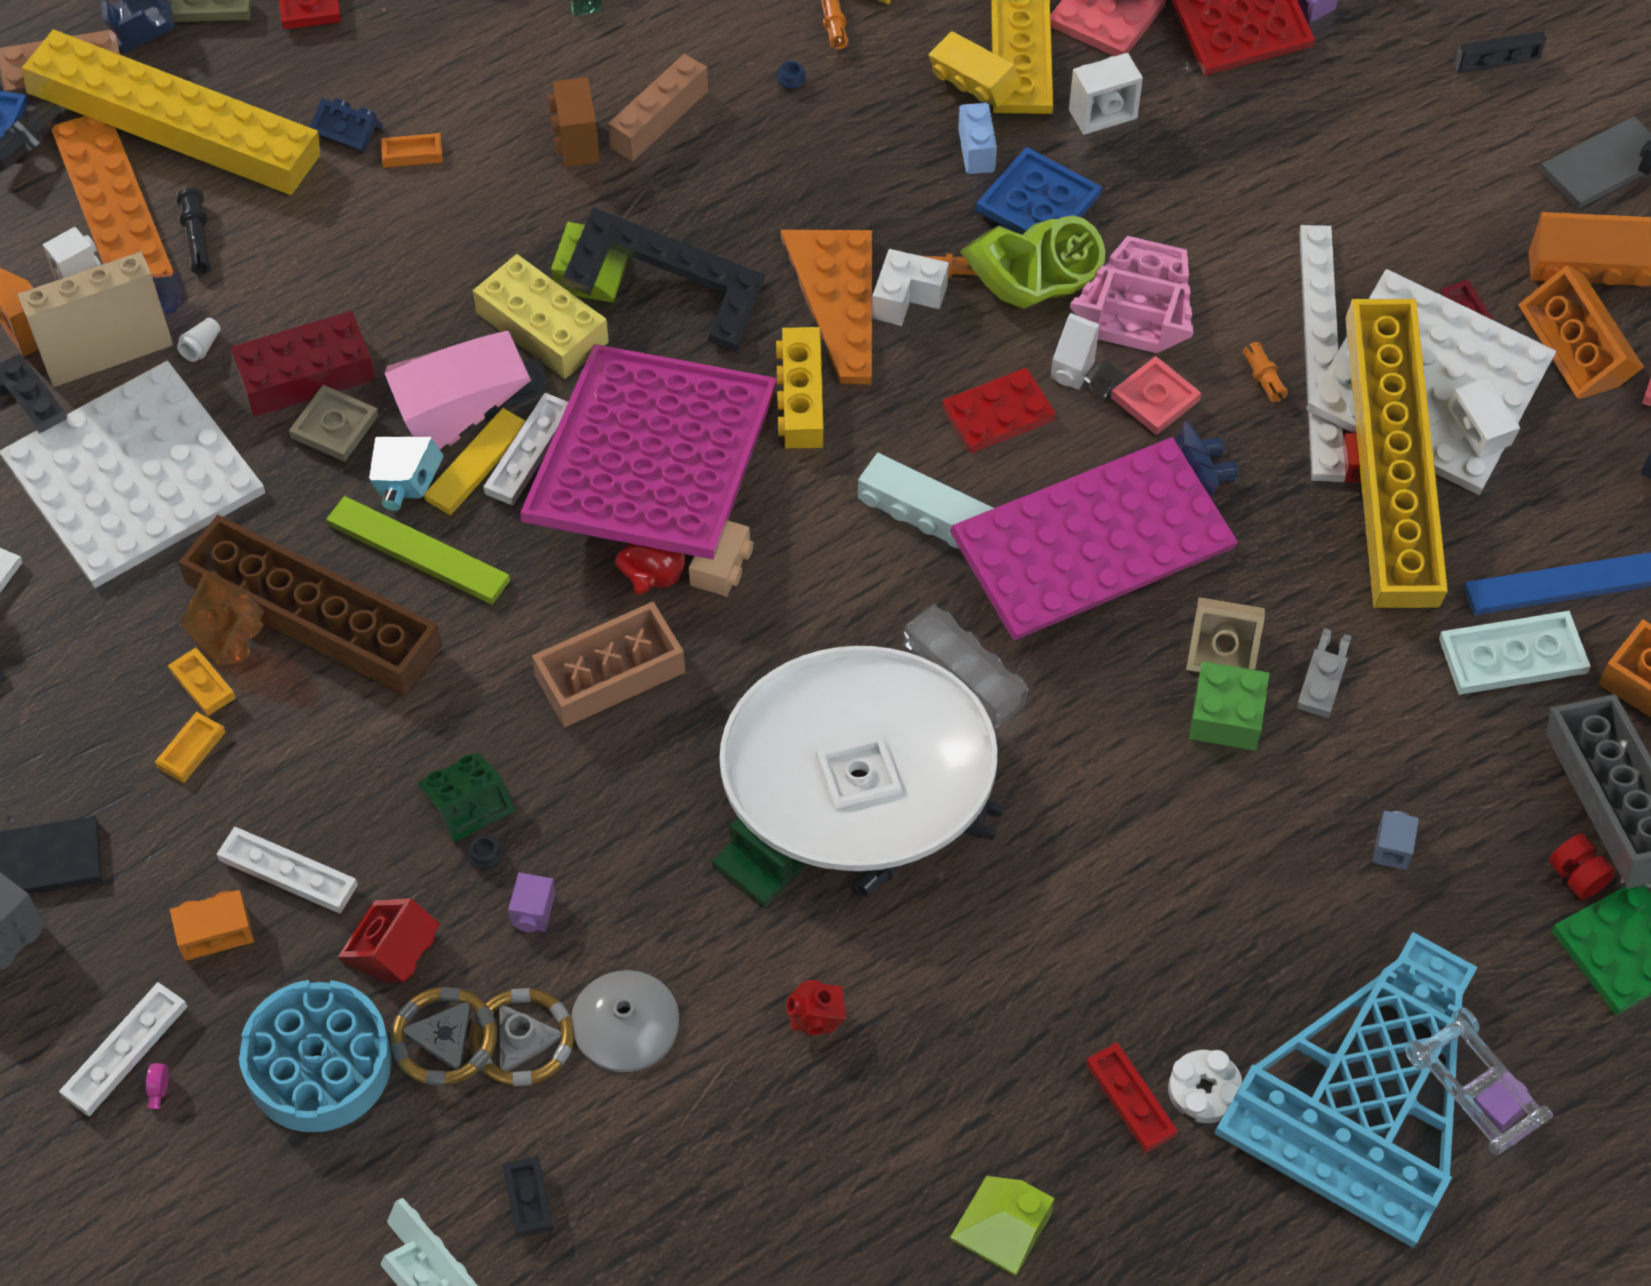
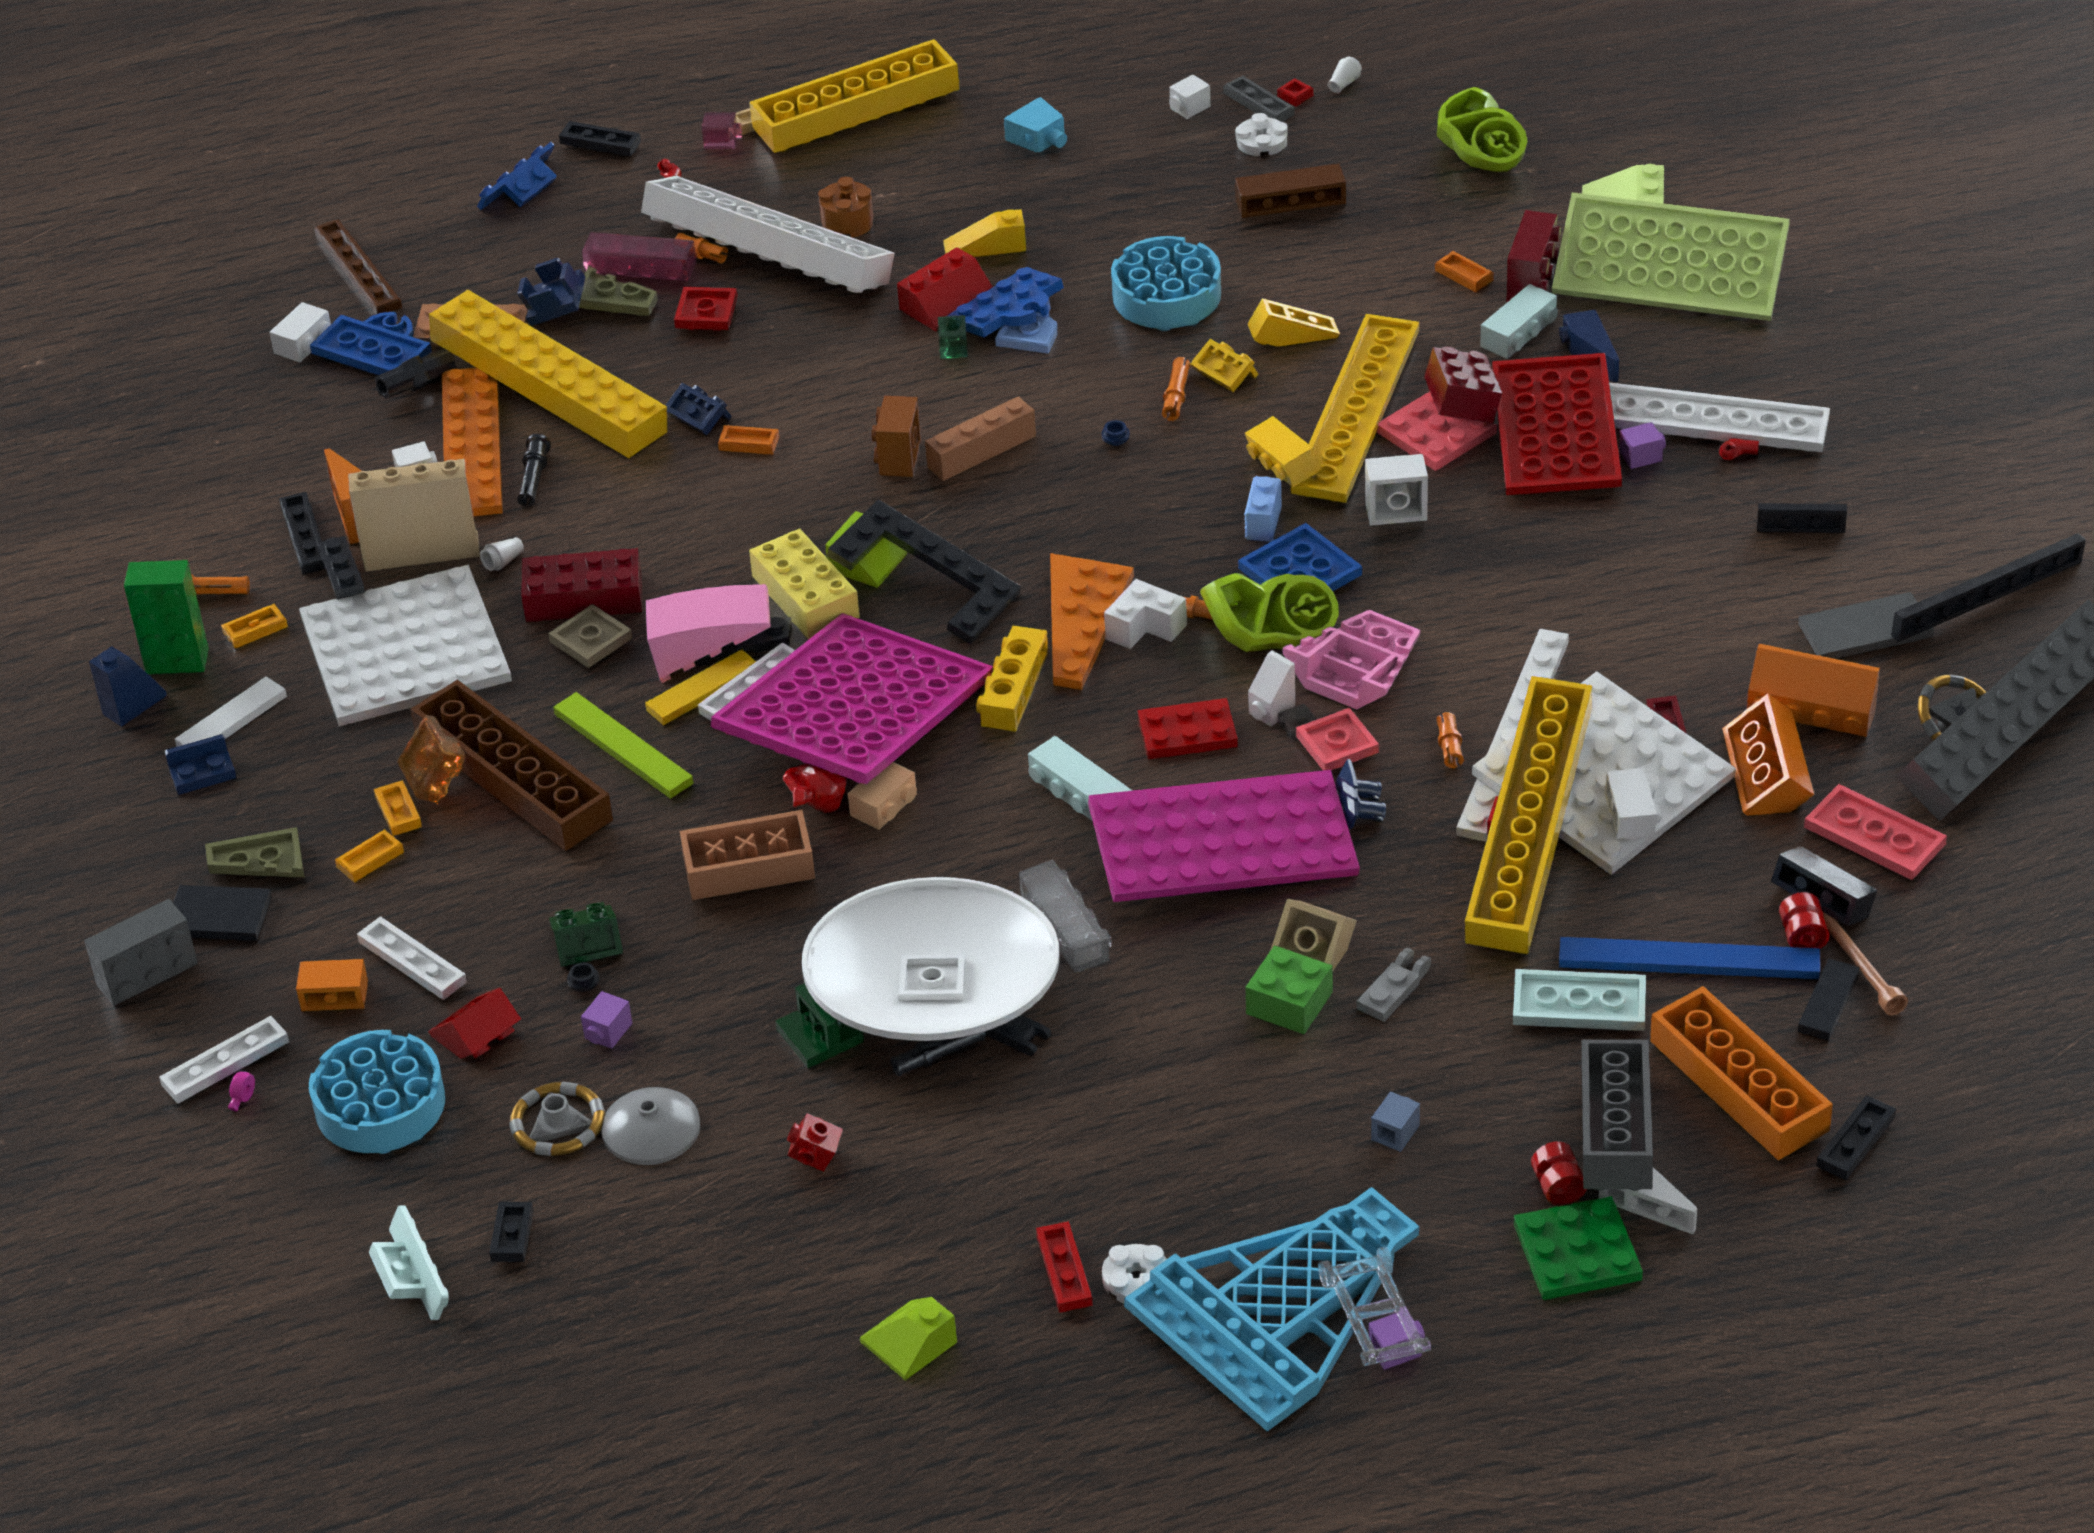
camera: 20 degrees right, 15 degrees down
(67, 774) = (258, 855): none -> olive wing
(169, 290) = (487, 510): clear blue brick -> none
(403, 468) = (634, 677): medium azure torso -> none
(443, 1035) = (489, 1099): piece -> none

